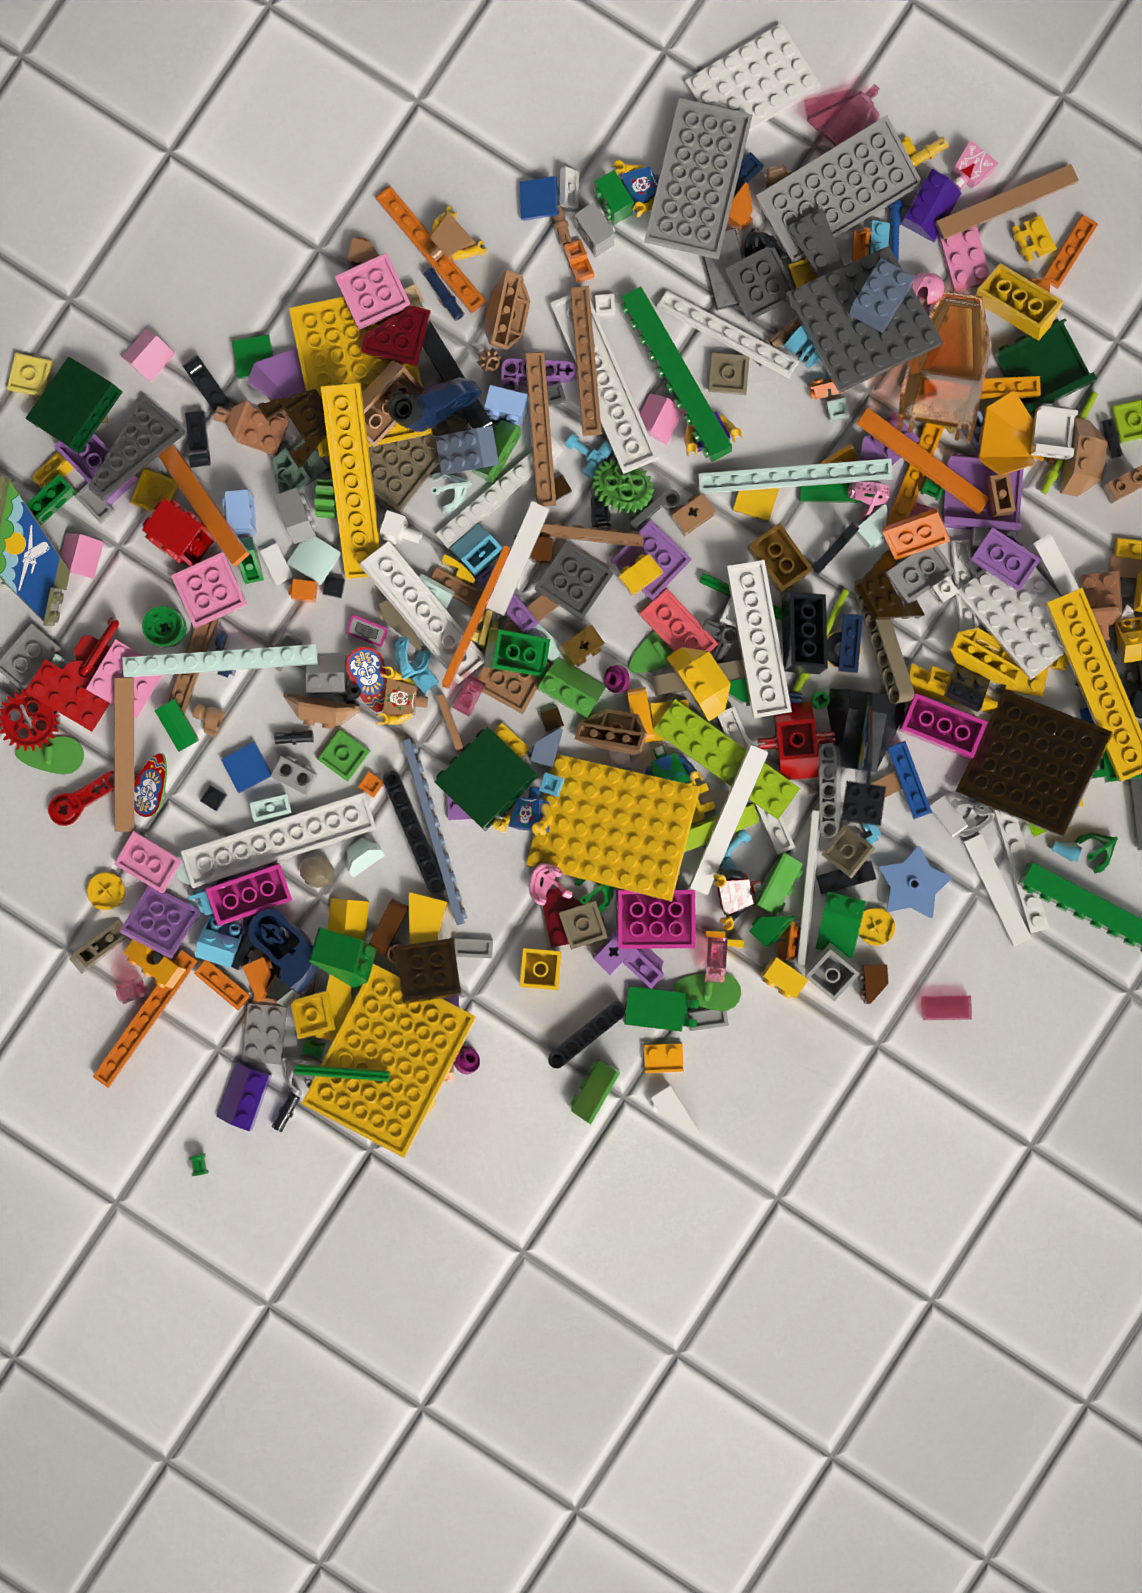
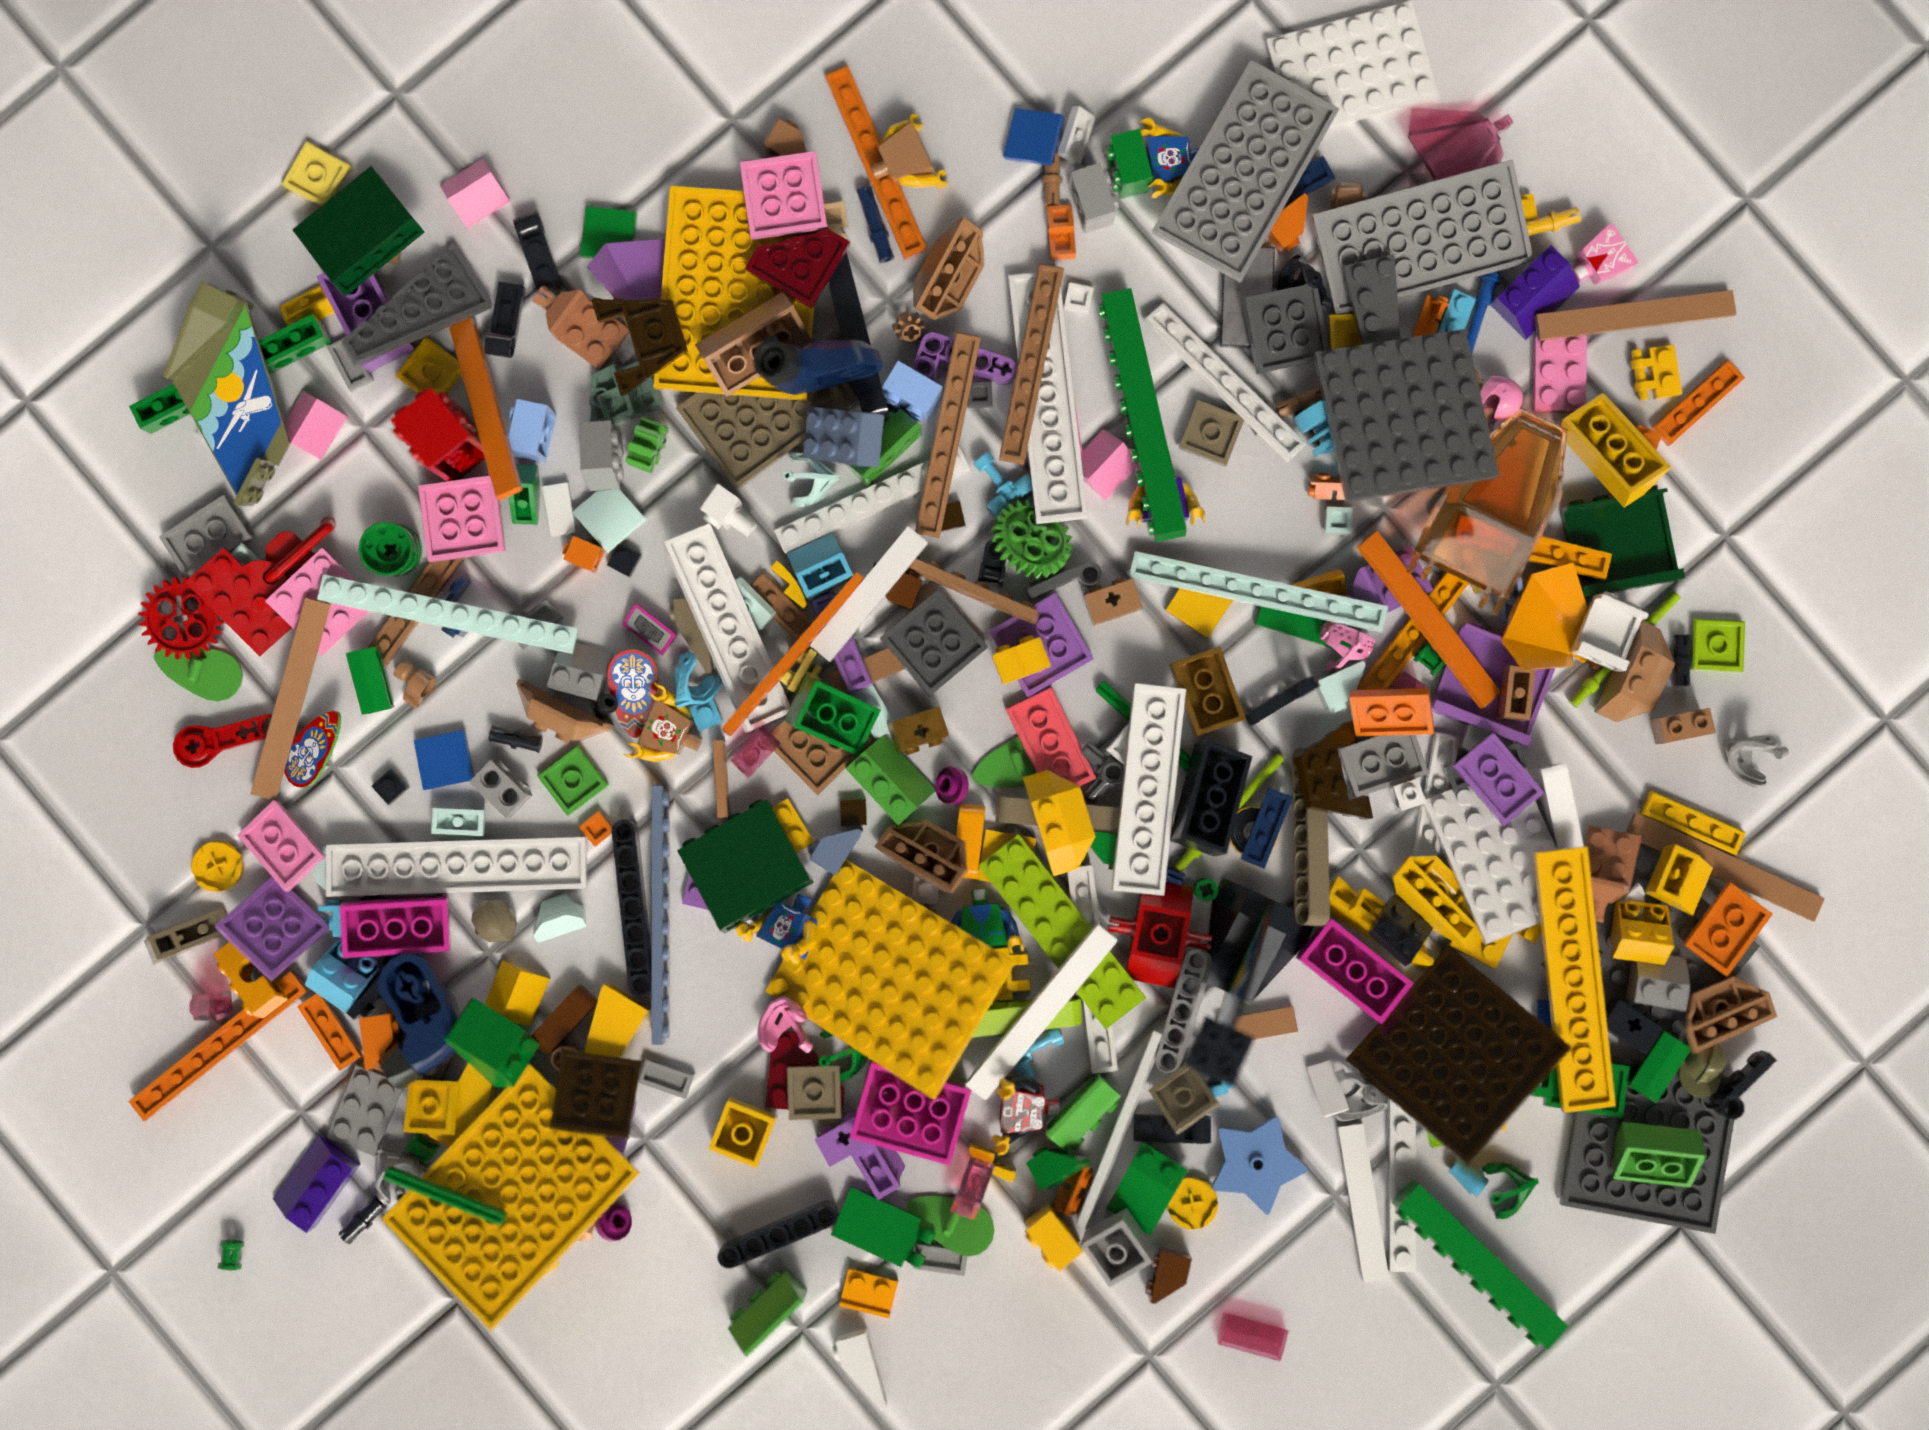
camera: 15 degrees right, 0 degrees up
(351, 475) = (685, 424): yellow plate -> none
(551, 784) = (827, 898): medium azure plate -> none
(881, 295) = (1437, 392): sand blue brick -> none
(909, 780) = (1290, 1027): blue tile -> none

